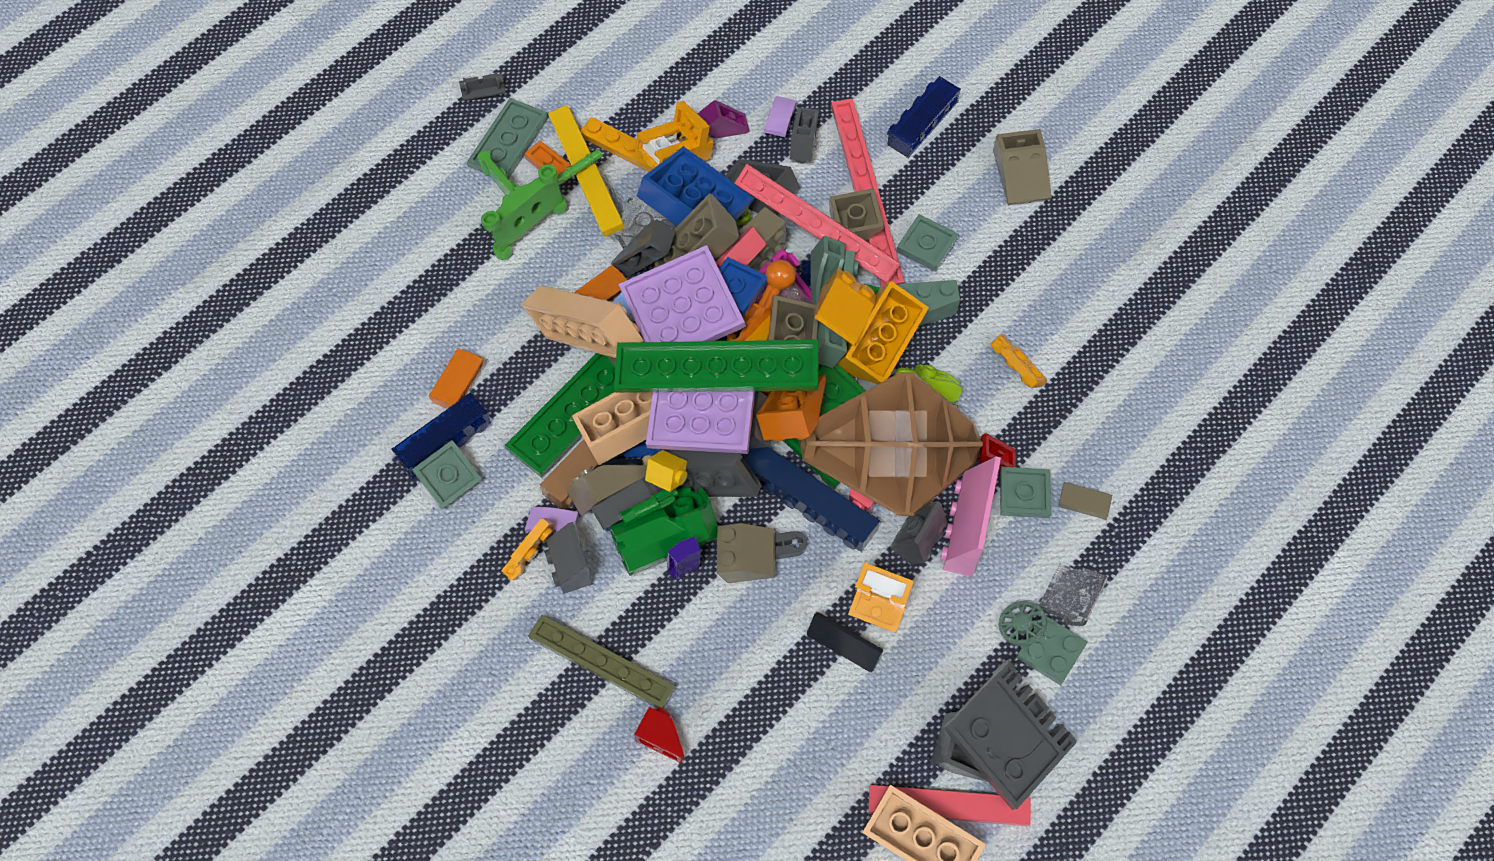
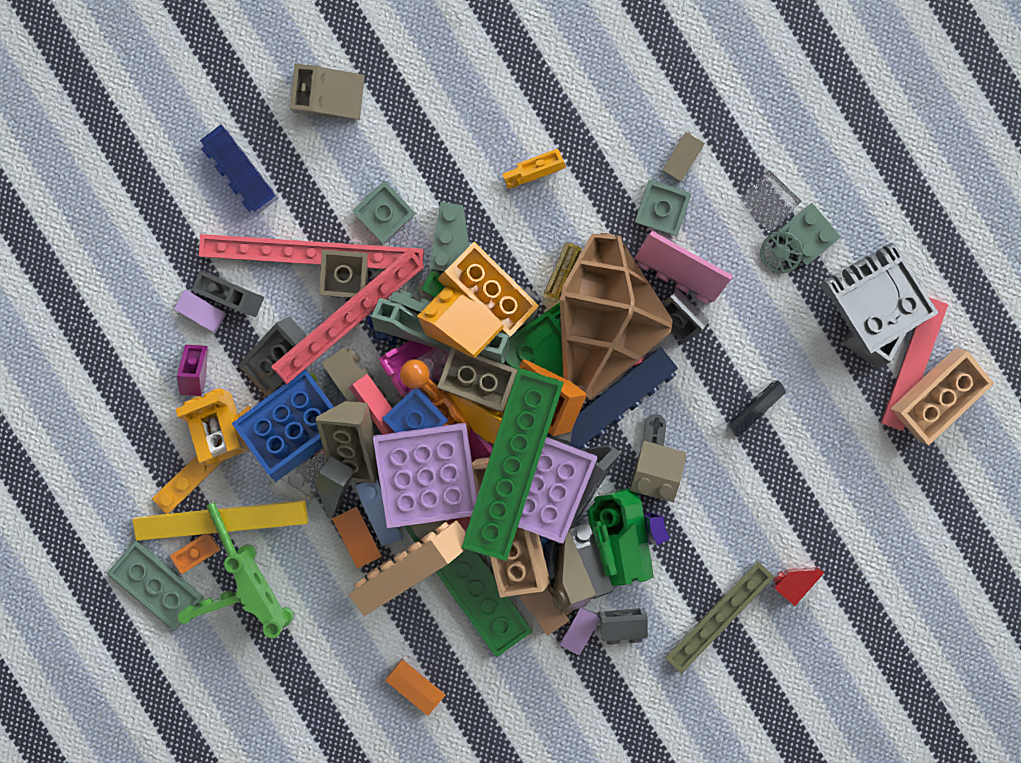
camera: 75 degrees left, 25 degrees up
(446, 474) = (512, 714): sand green plate -> none
(455, 423) = (470, 711): clear blue brick -> none
(487, 86) = (86, 598): dark grey hinge -> none
(527, 549) = (604, 658): light orange hinge -> none
(666, 470) = (582, 527): yellow brick -> none
(881, 597) = (729, 365): light orange brick -> none
(939, 380) = (539, 261): lime hinge -> none
(995, 448) = (622, 221): red slope -> none

